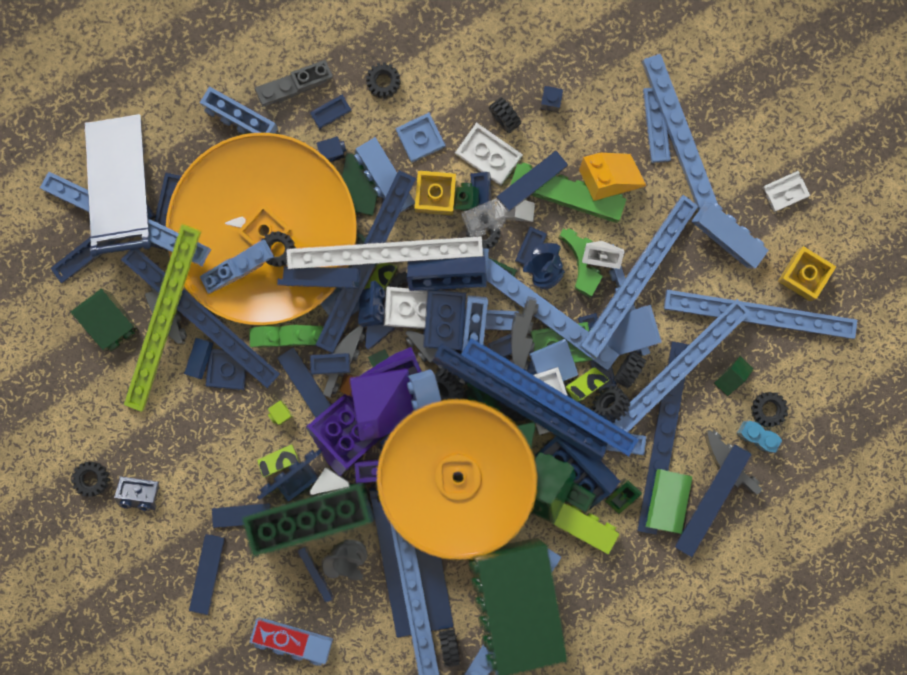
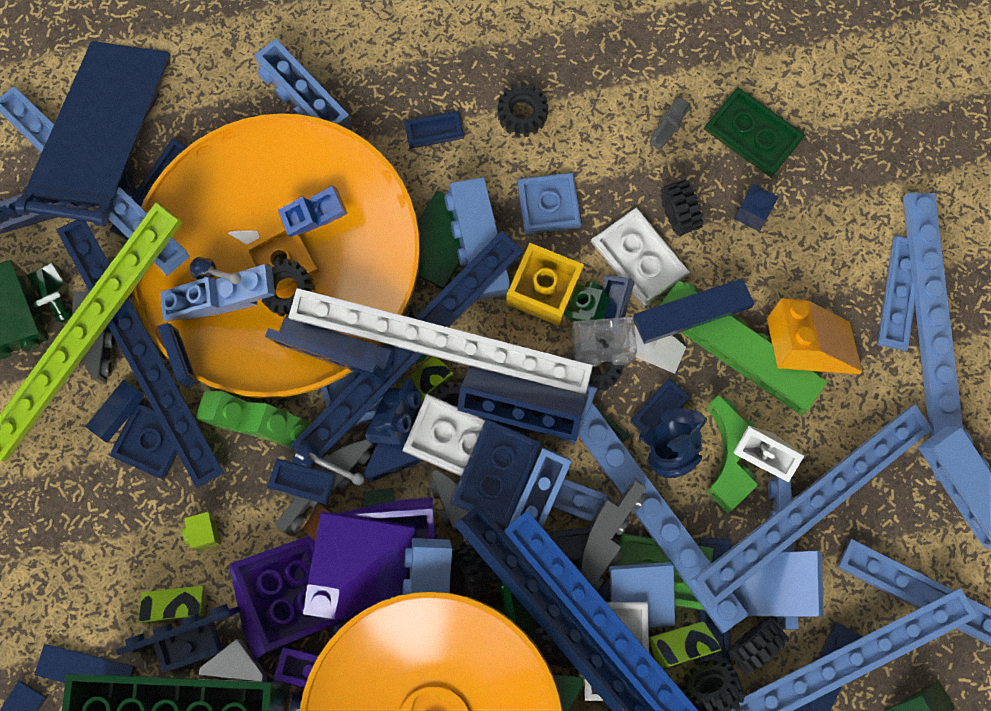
camera: 15 degrees right, 10 degrees down
(128, 296) = (50, 286): none -> dark green piece
(221, 254) = (206, 266): none -> hinge
(226, 312) = (177, 354): none -> dark blue tile
(276, 195) = (312, 213): none -> blue slope
(294, 84) = (400, 76): dark grey slope -> none
(304, 382) = (255, 497): dark blue tile -> none
(327, 348) = (307, 454): none -> hinge
(332, 148) = (418, 178): dark blue brick -> none
(480, 59) = (669, 123): none -> dark grey axle
(535, 47) = (754, 132): none -> dark green tile

